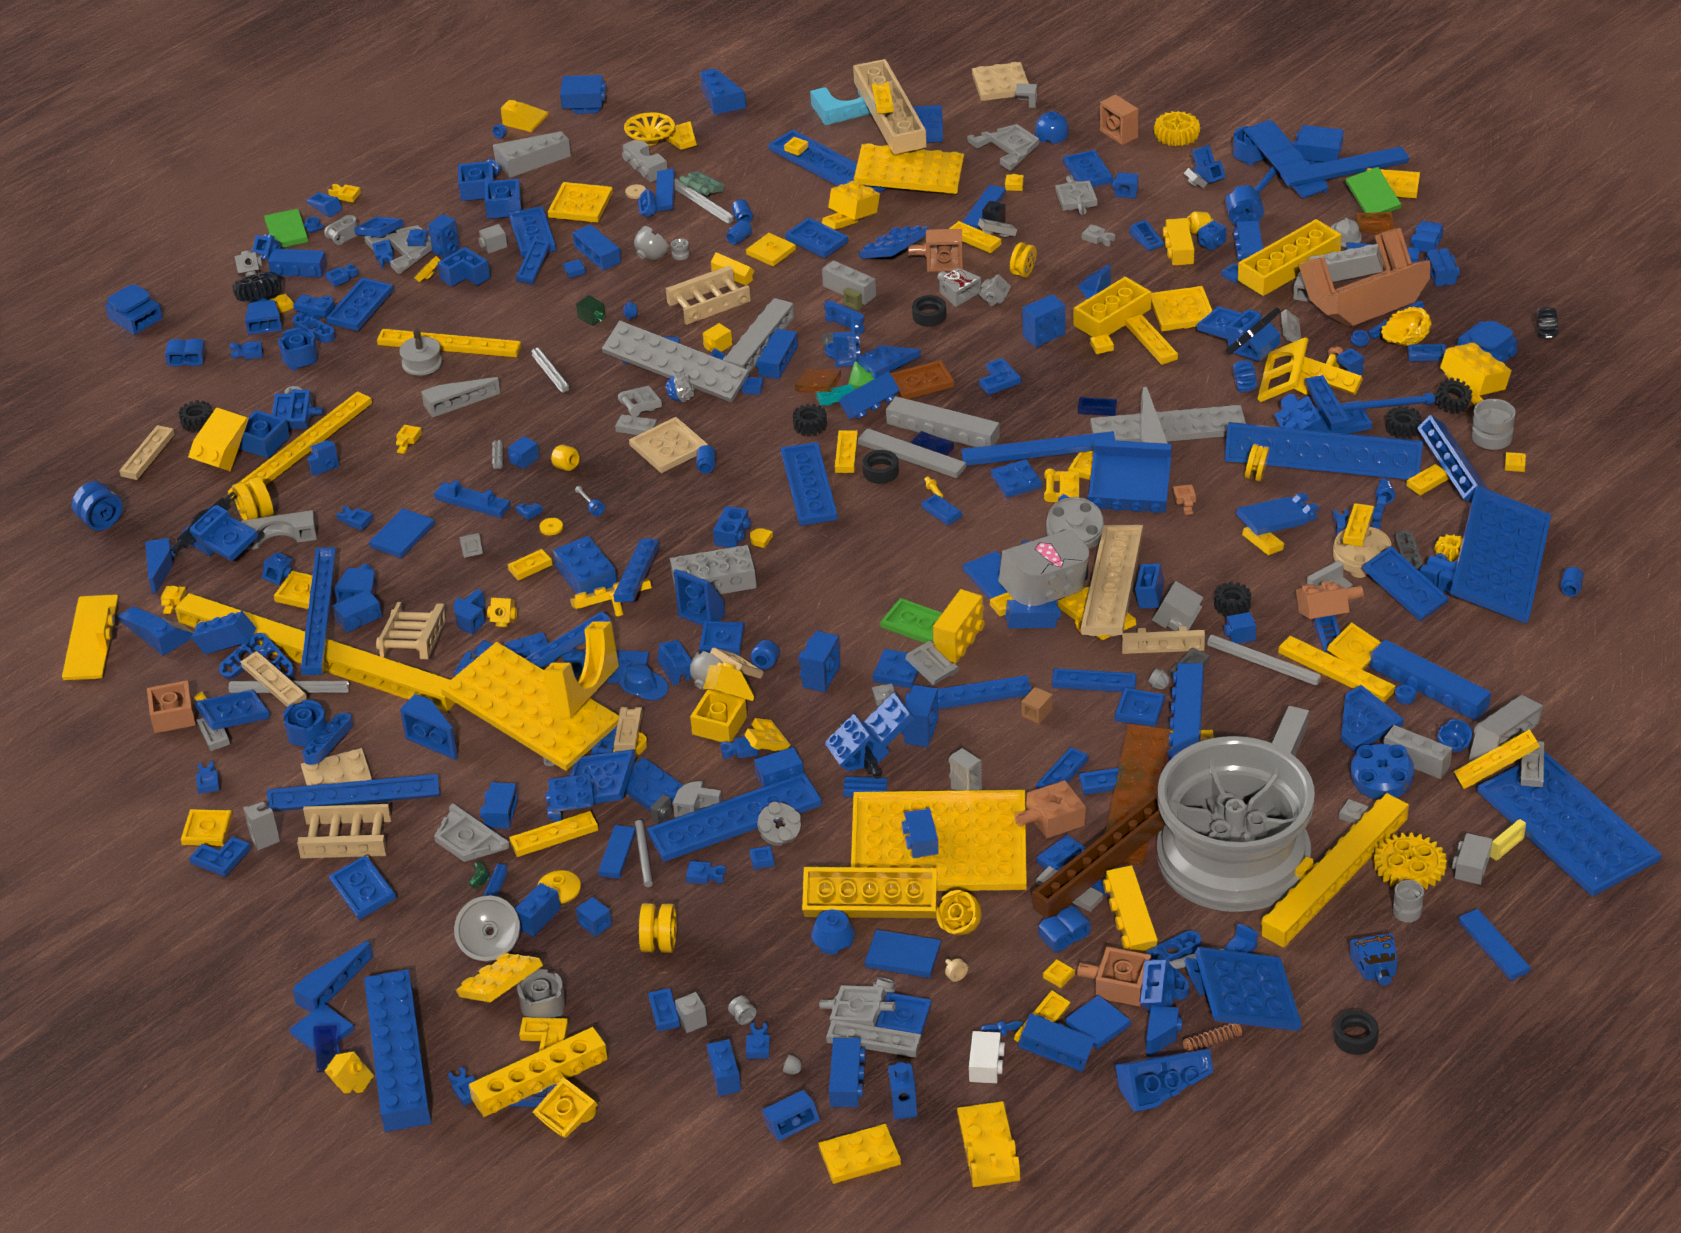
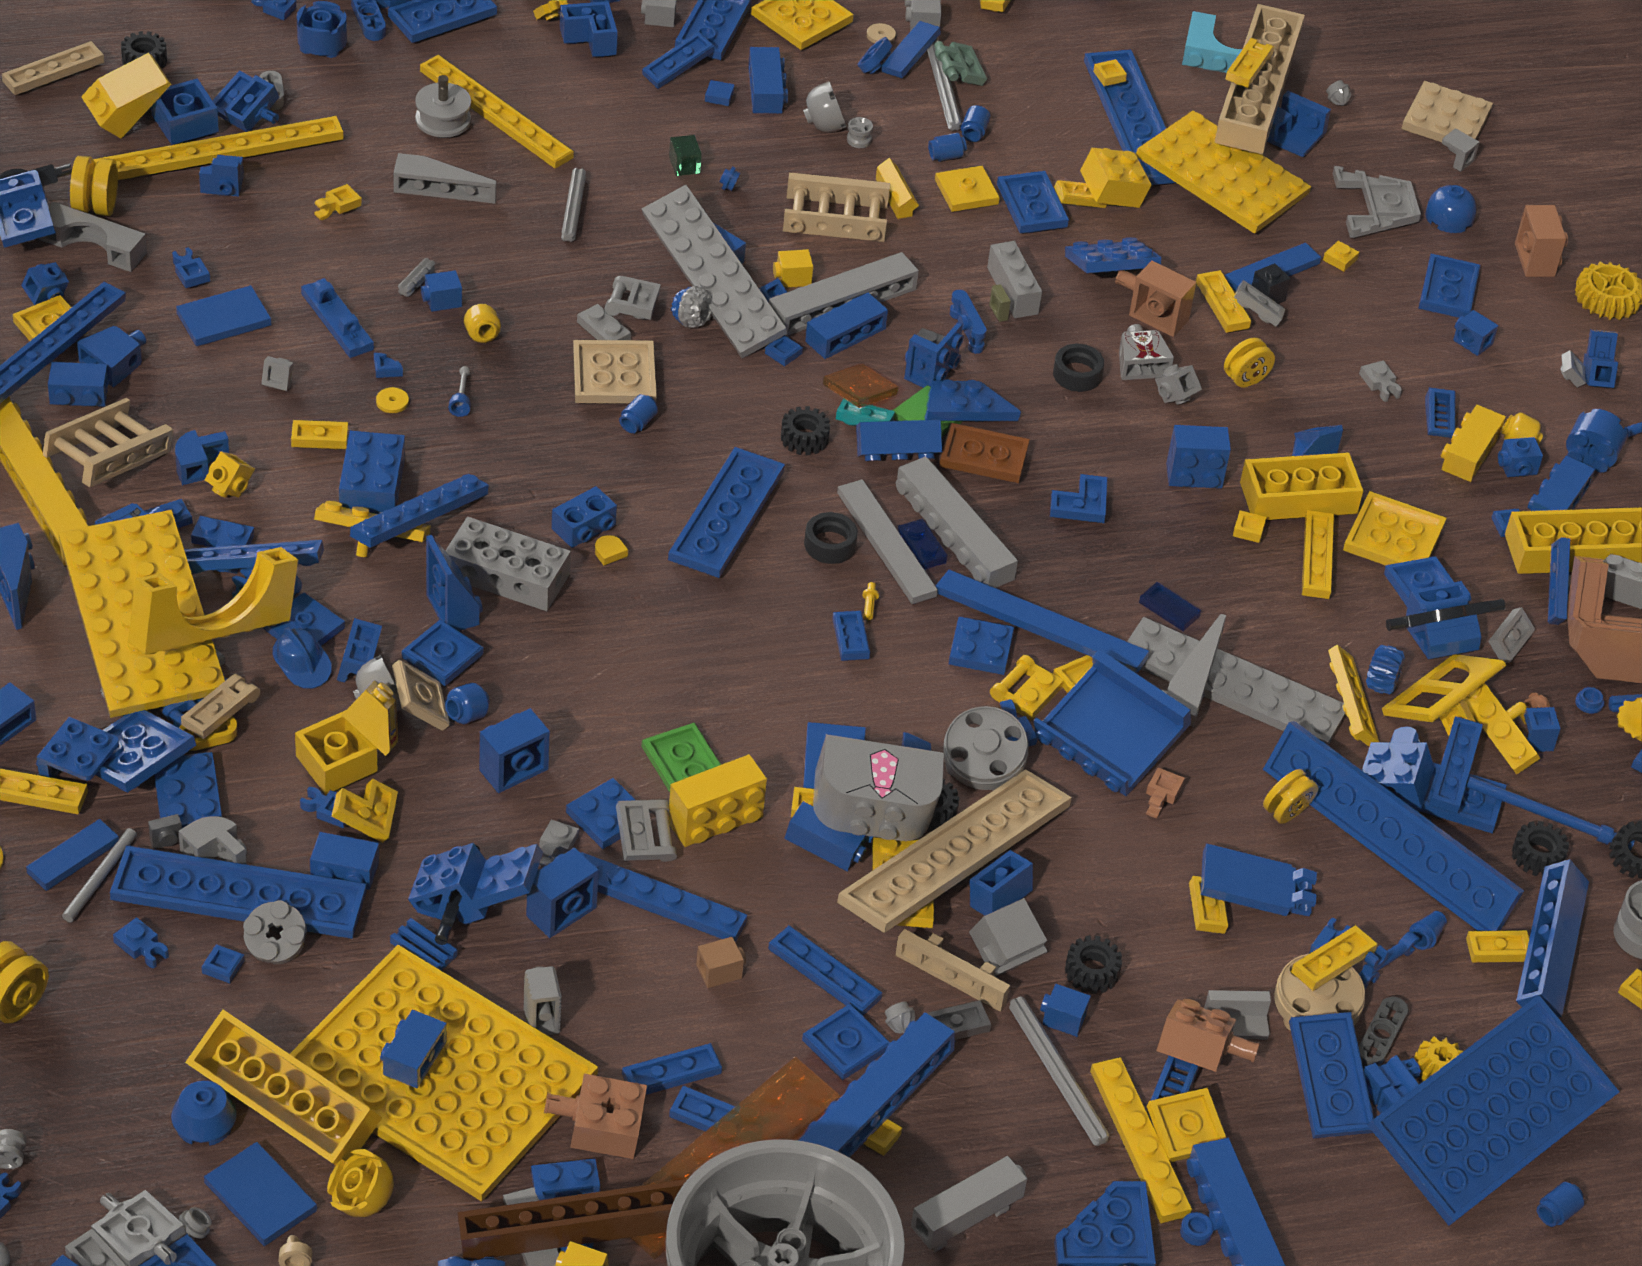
camera: 25 degrees right, 5 degrees up
(846, 451) = (809, 495): yellow plate -> none
(931, 97) = (1339, 93): none -> light grey plate
(1076, 195) = (1400, 312): light grey plate -> none
(1243, 403) = (1354, 699): none -> yellow plate
(1294, 285) = (1559, 581): none -> blue tile

